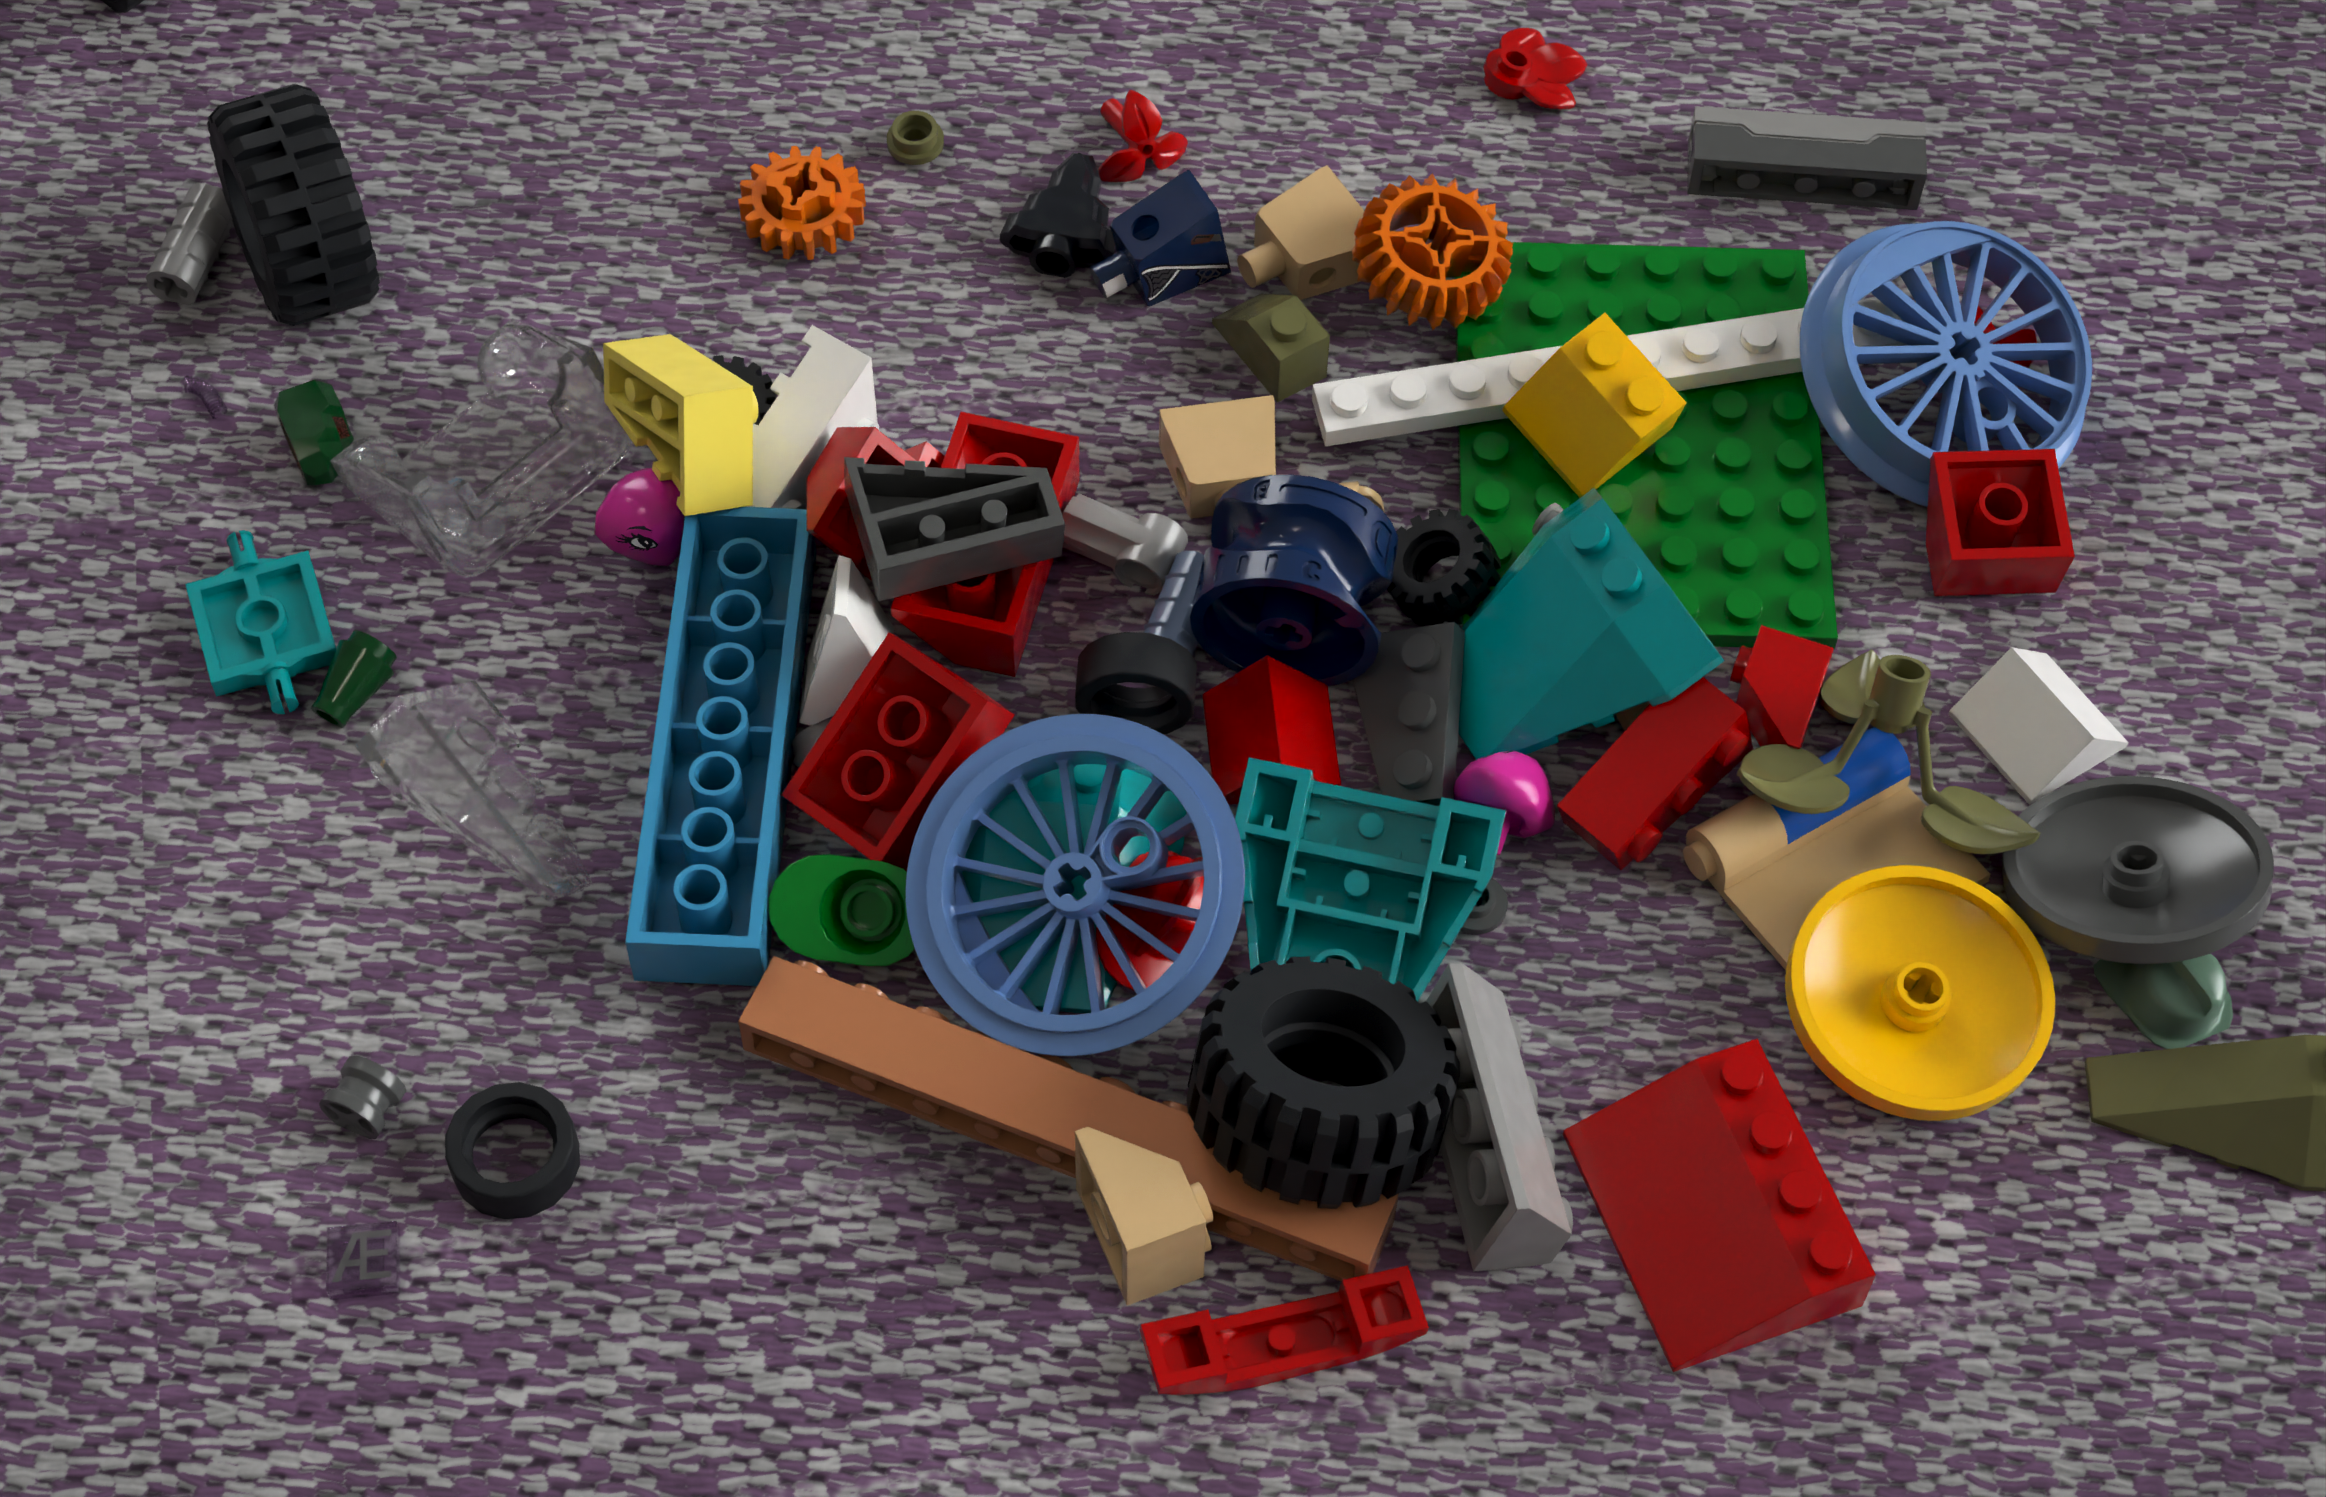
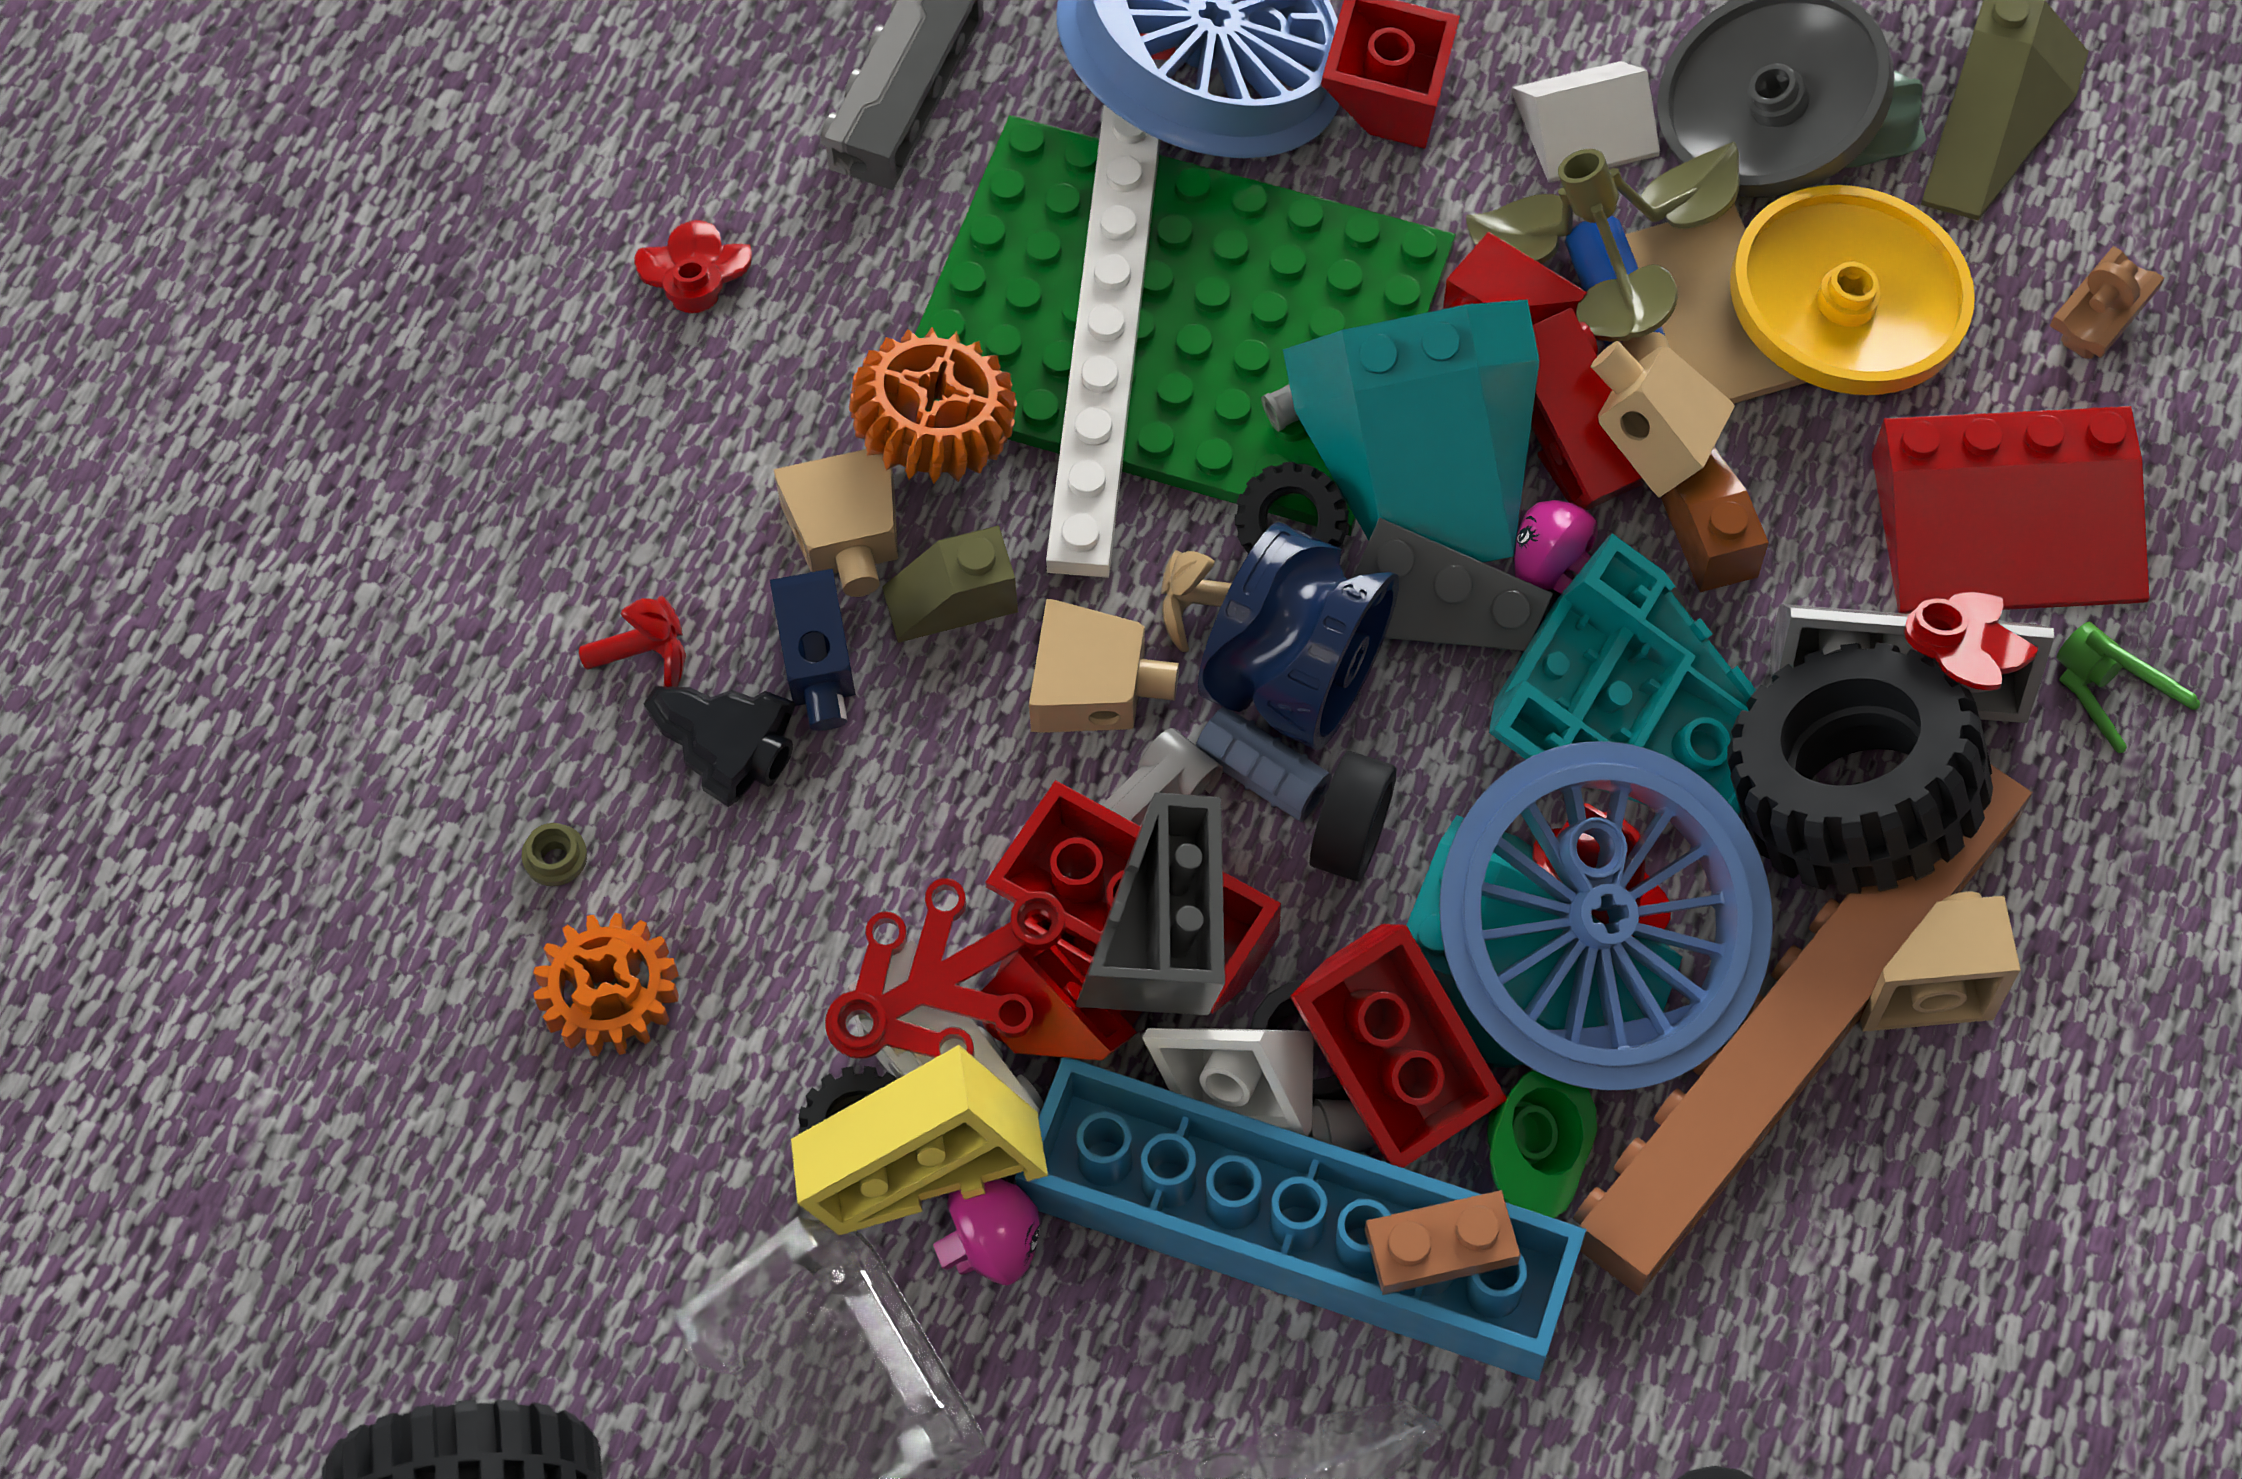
camera: 70 degrees left, 5 degrees up
(708, 830) = (1442, 1242): none -> nougat plate
(836, 378) = (936, 981): none -> red plant
(1271, 717) = (1426, 727): red slope -> none
(1285, 1339) = (2063, 890): red slope -> none
(1474, 1126) = (1968, 639): none -> plate
(1566, 1321) = (2098, 659): none -> bright green plant
(1594, 406) = (1175, 323): yellow slope -> none
(1607, 919) = (1716, 526): none -> dark orange slope
(1664, 822) = (1660, 414): none -> tan torso
(2021, 1246) = (2105, 304): none -> medium nougat hips

